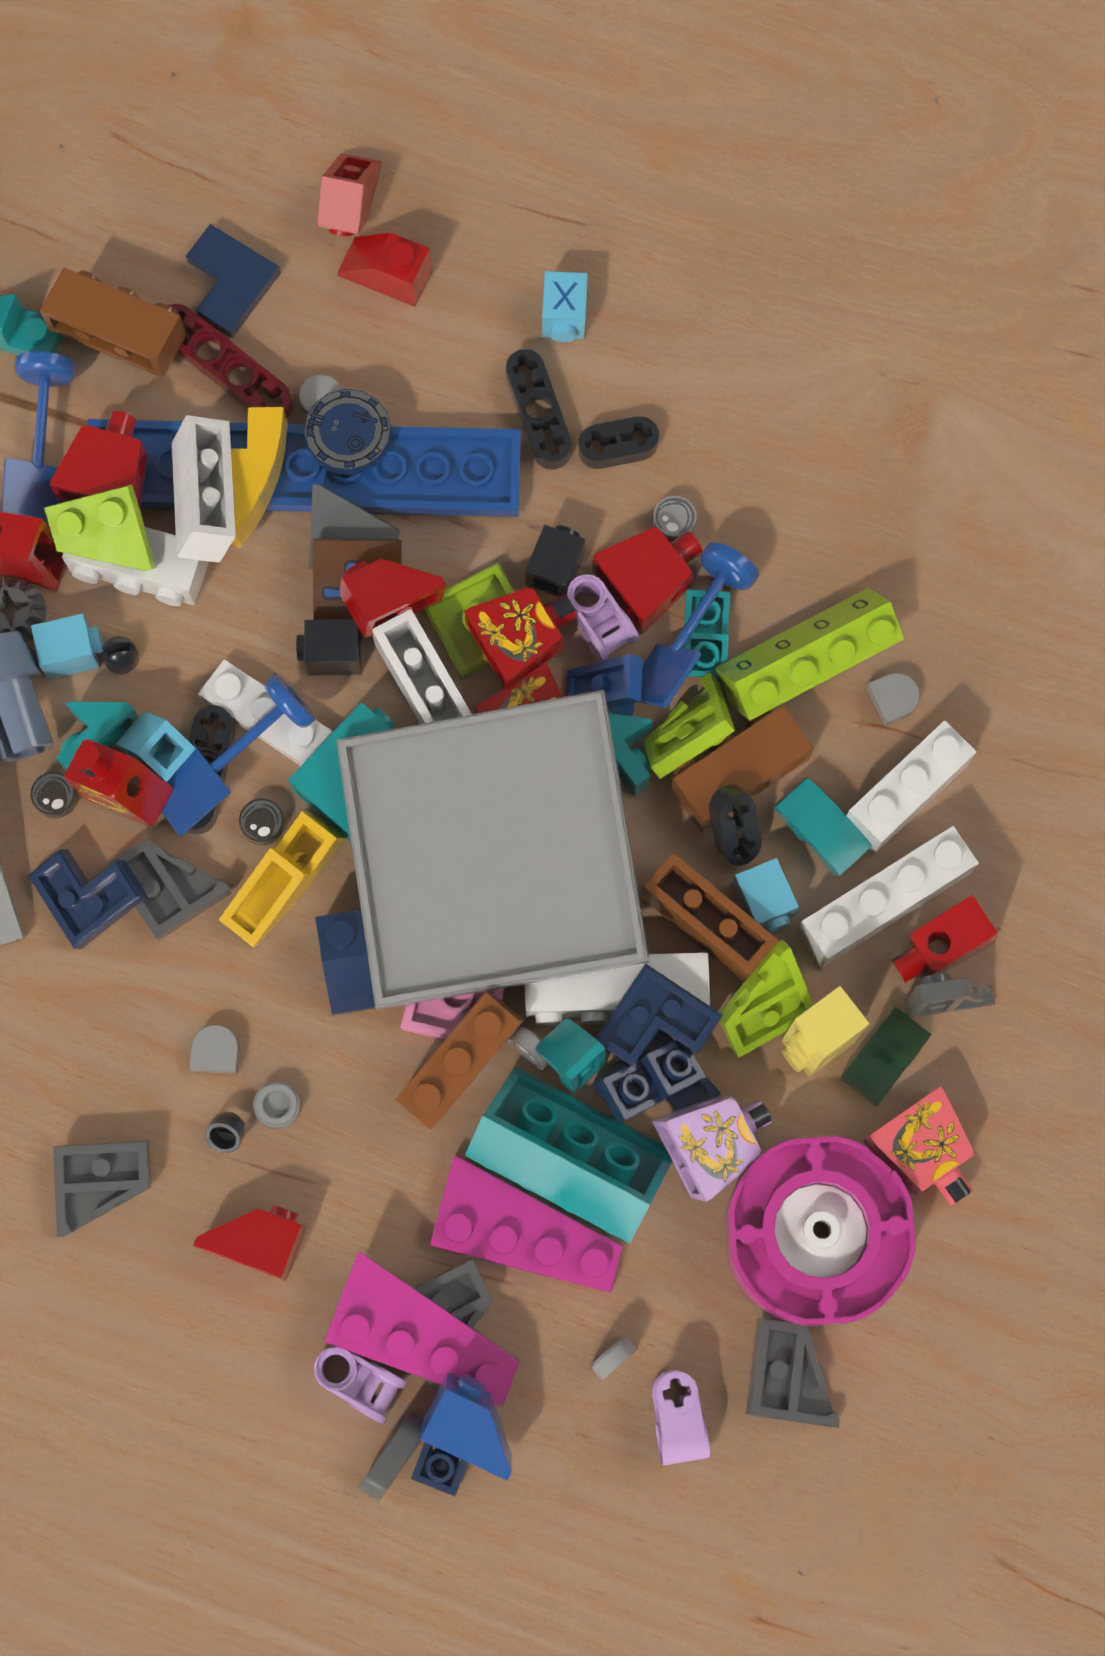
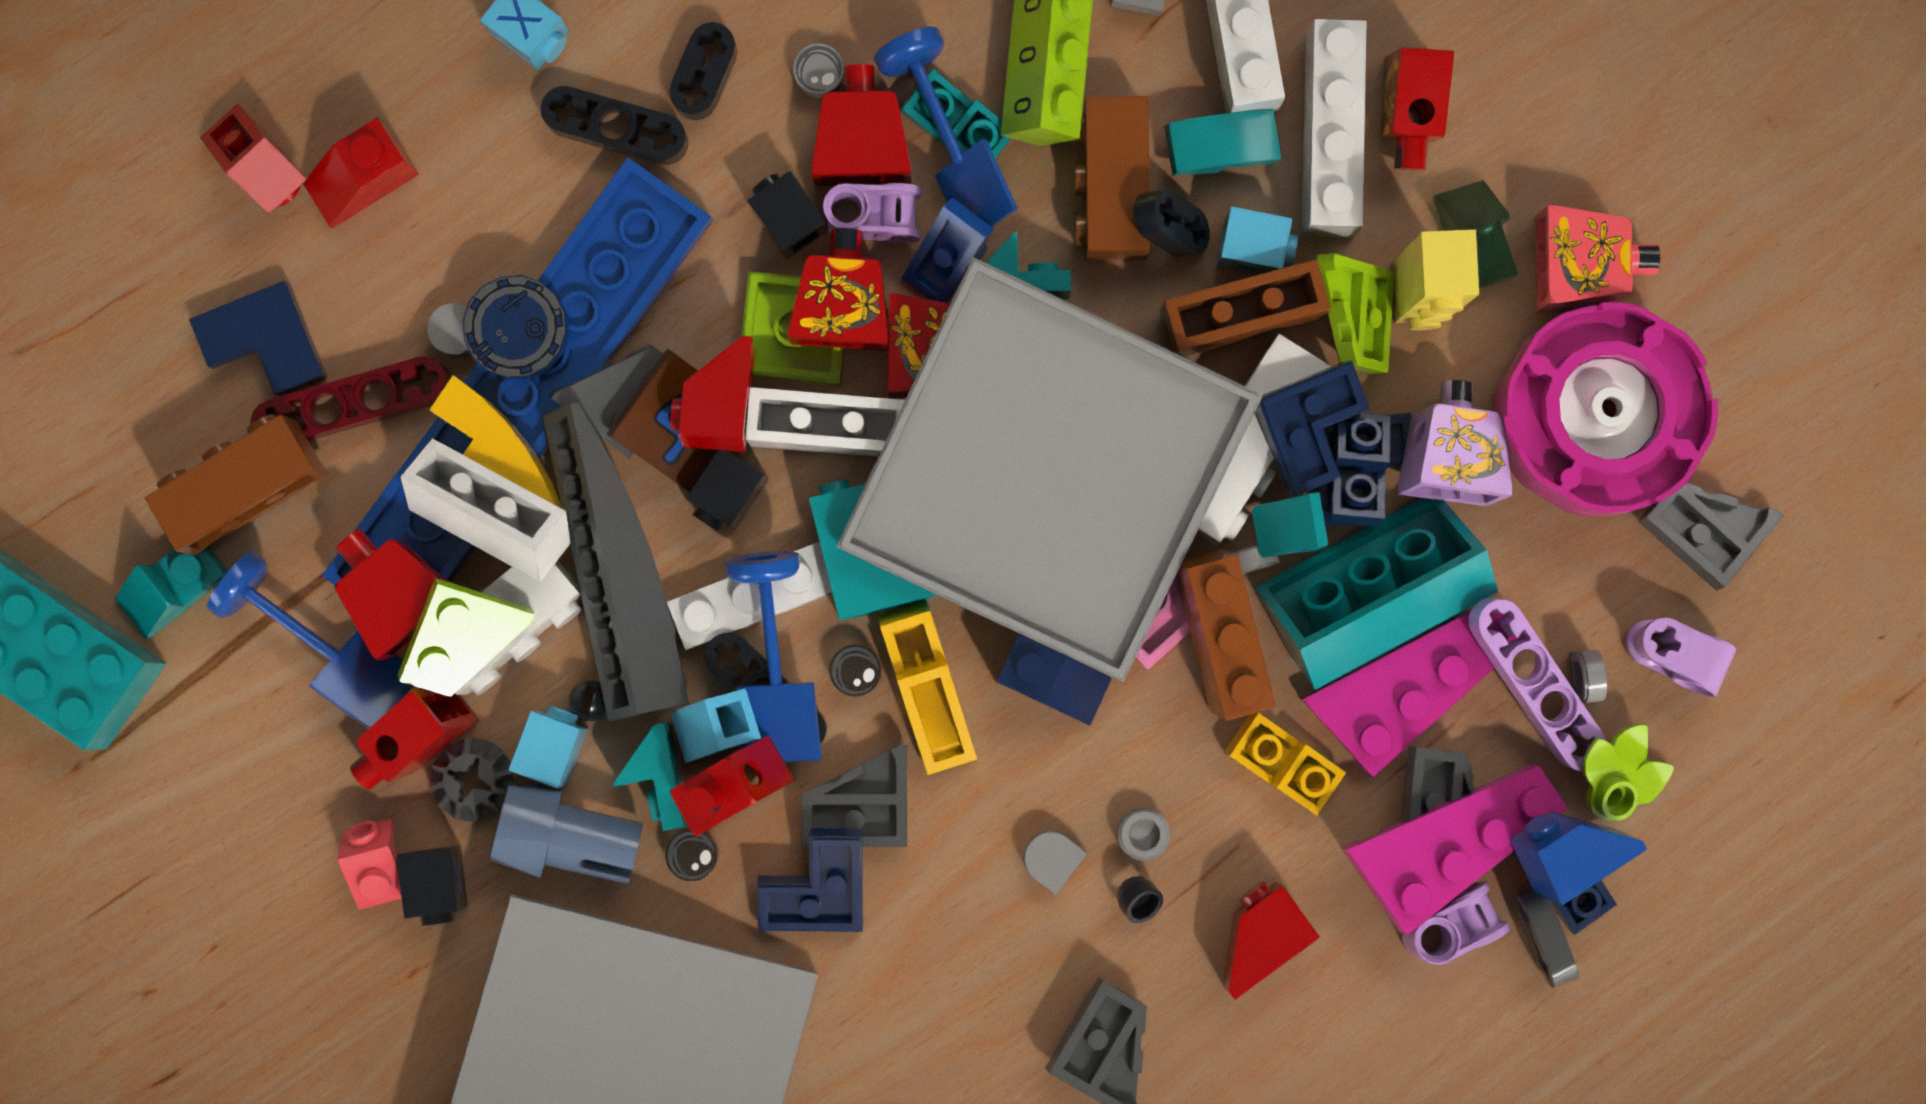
camera: 55 degrees left, 10 degrees up
(216, 612) = (615, 574): none -> dark grey slope
(398, 1173) = (1284, 762): none -> yellow slope
(564, 1431) = (1622, 774): none -> lime plate
(585, 1322) = (1543, 679): none -> lavender beam
(690, 729) = (1047, 200): lime wing -> none
(943, 995) = (1464, 145): dark grey wing -> none

